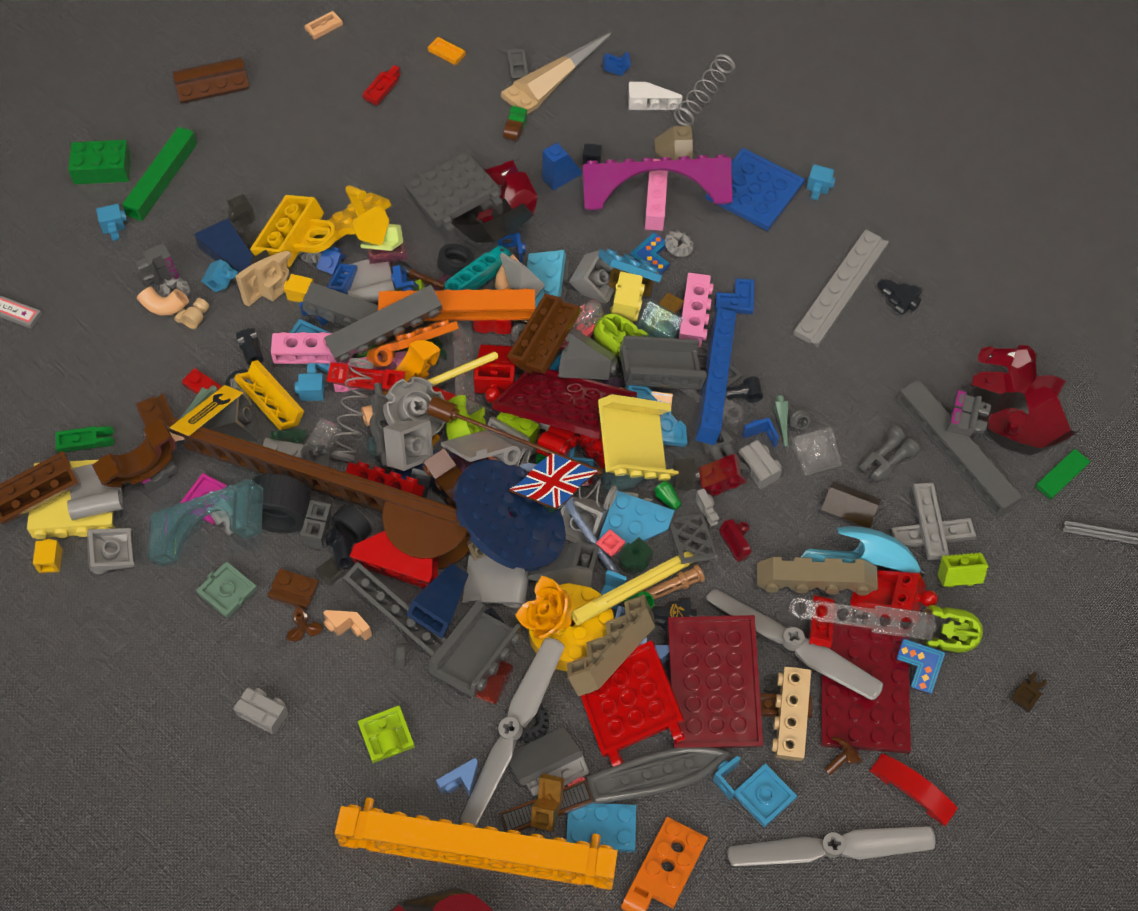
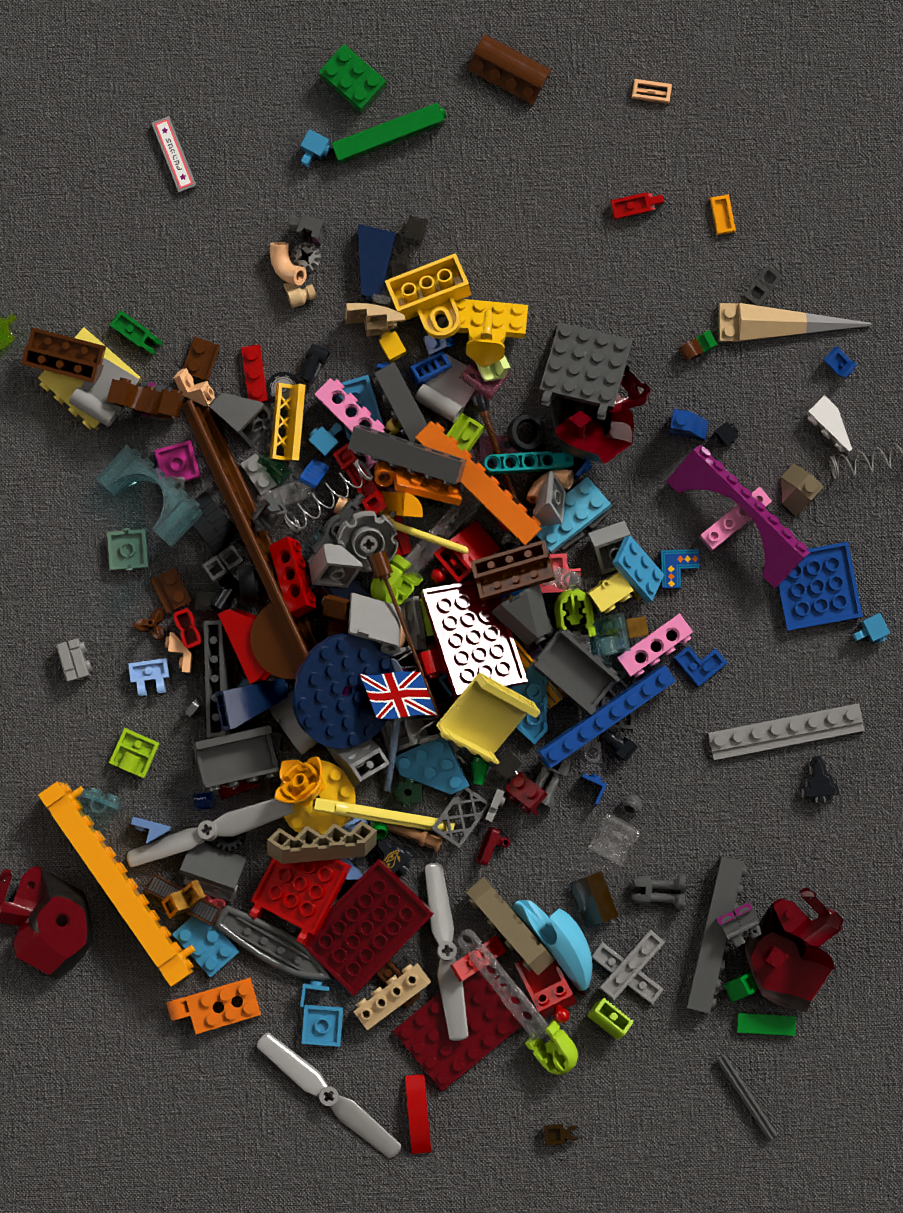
camera: 50 degrees right, 25 degrees up
(47, 556) = (36, 408): yellow brick -> none
(109, 549) = (78, 445): light grey slope -> none
(201, 396) = (238, 383): sand green piece -> none
(206, 410) = (221, 411): yellow sticker -> none
(218, 275) = (345, 279): dark azure brick -> none
(326, 409) = (314, 473): none -> blue slope
(331, 597) = (190, 634): none -> red brick
(335, 660) = (149, 671): none -> light blue plate
(396, 791) = (108, 801): none -> clear light blue plate
(400, 280) = (465, 416): blue bracket -> none
(482, 716) = (204, 801): none -> clear blue brick
(610, 543) = (400, 768): coral slope -> none
(613, 581) = (376, 794): dark azure bracket -> none
(671, 243) = (699, 573): light grey gear -> none
(762, 466) = (565, 809): light grey brick -> none
(781, 412) = (626, 786): sand green piece -> none
(849, 754) = (396, 1056): reddish brown plant -> none
(927, 663) = (514, 1048): blue tile -> none
(1018, 462) = (741, 986): none -> green brick

